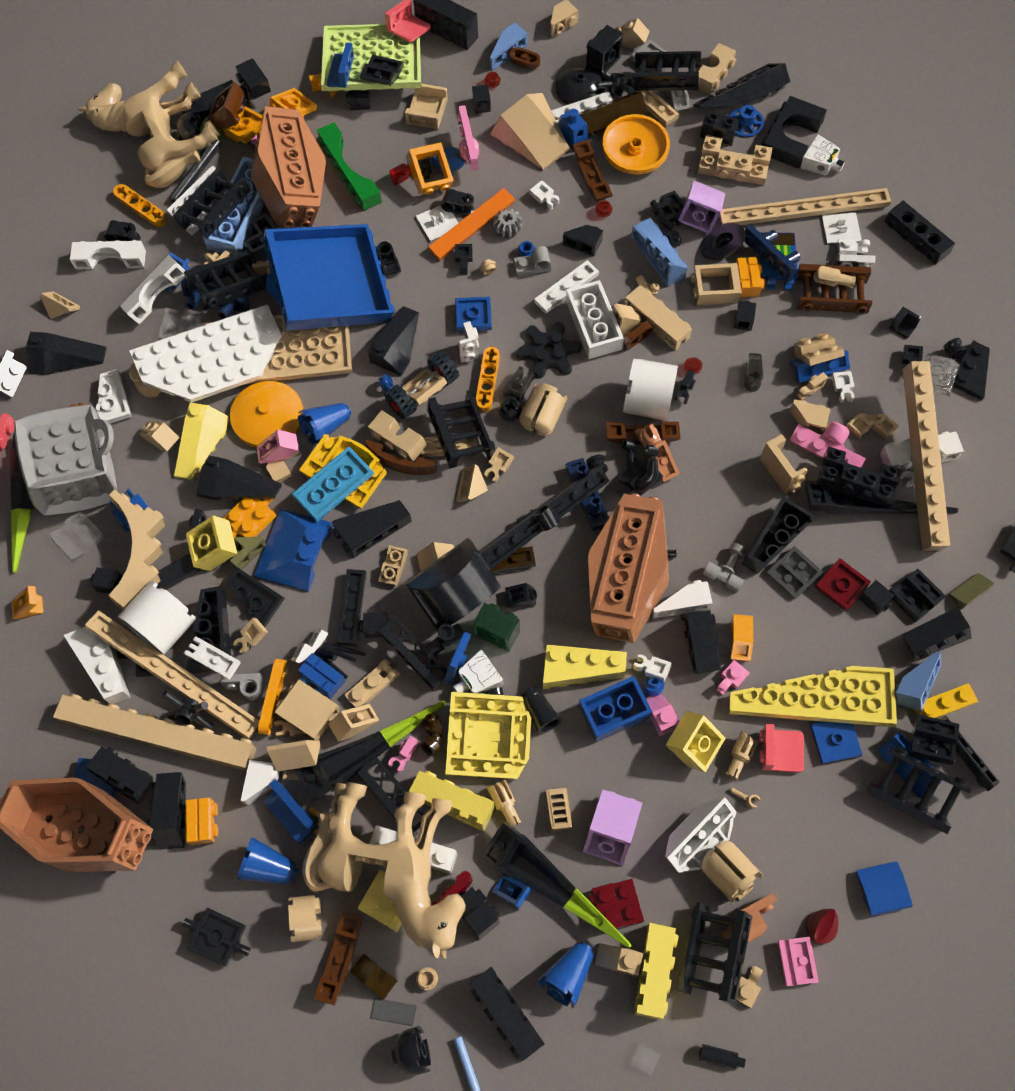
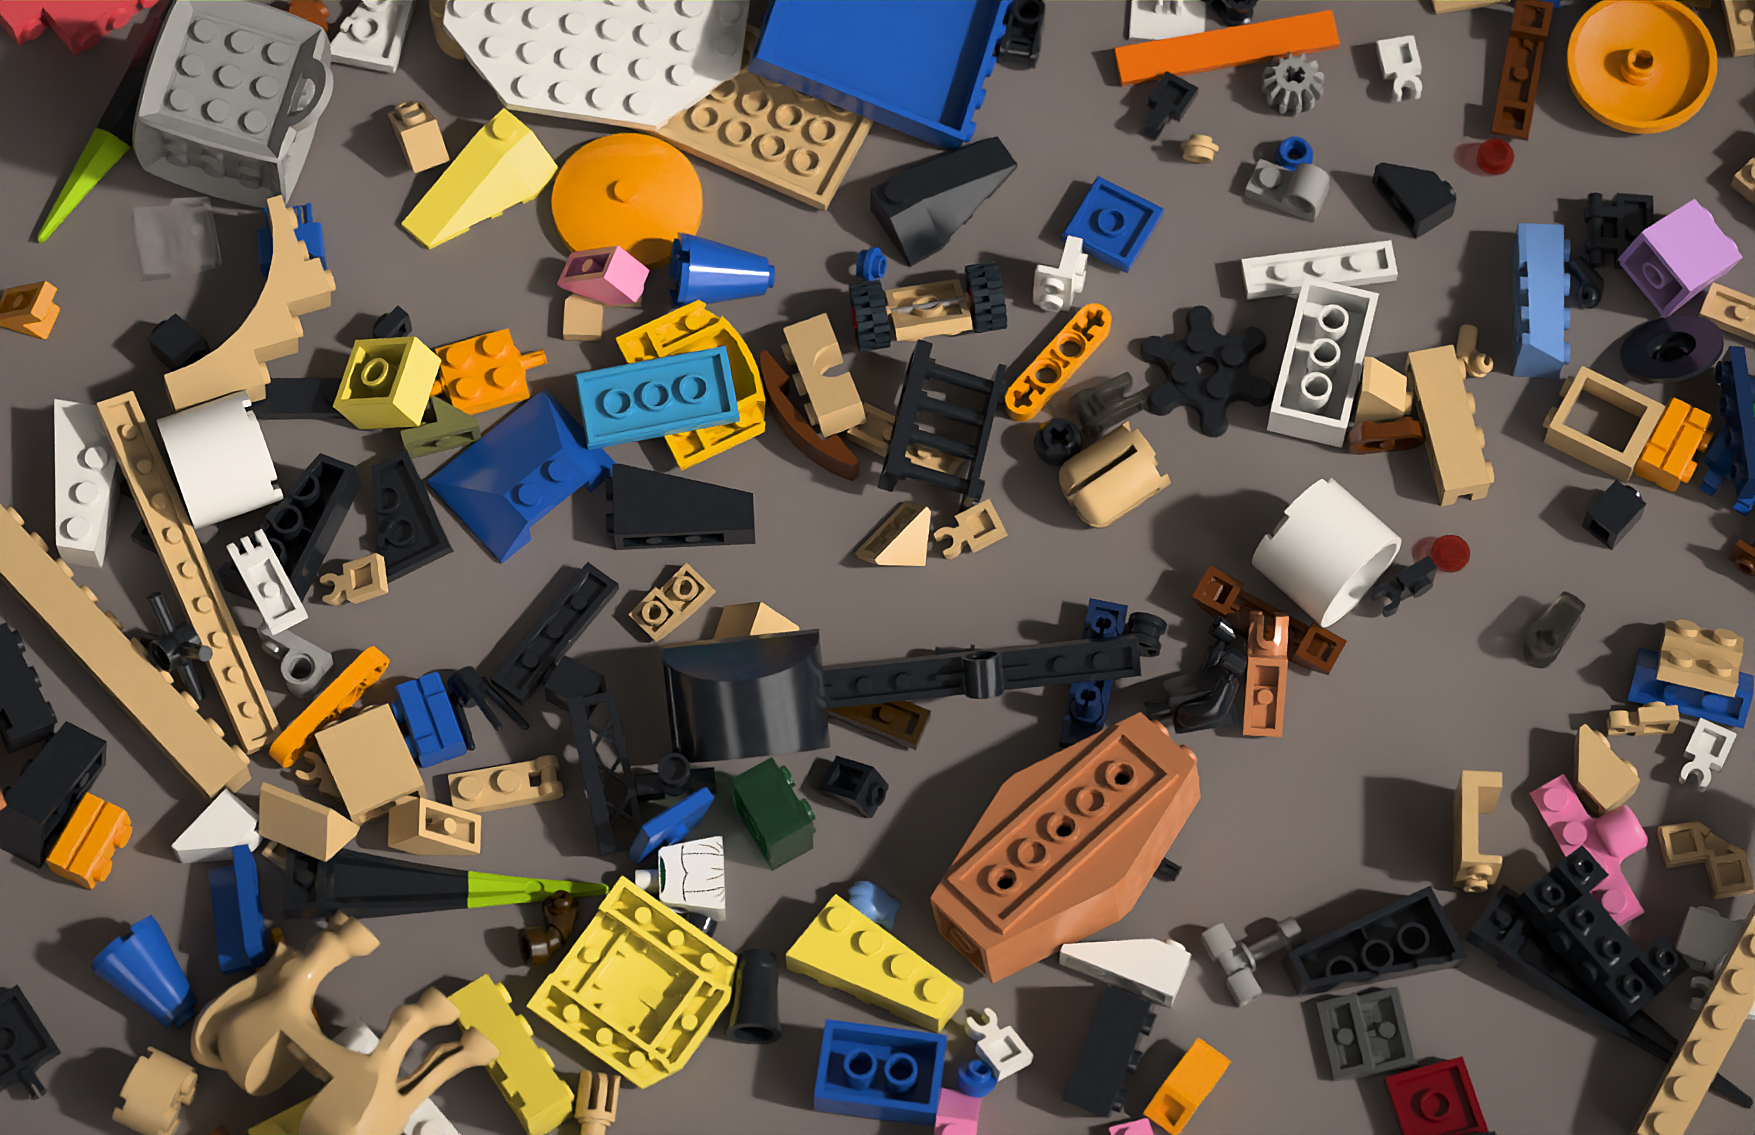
camera: 30 degrees right, 0 degrees up
(228, 479) = (487, 286): black wedge -> none
(304, 650) = (428, 660): white slope -> none
(380, 794) = (401, 973): black fence -> none
(406, 749) = (489, 931): bright pink plate -> none
(562, 638) = (874, 903): none -> medium blue animal

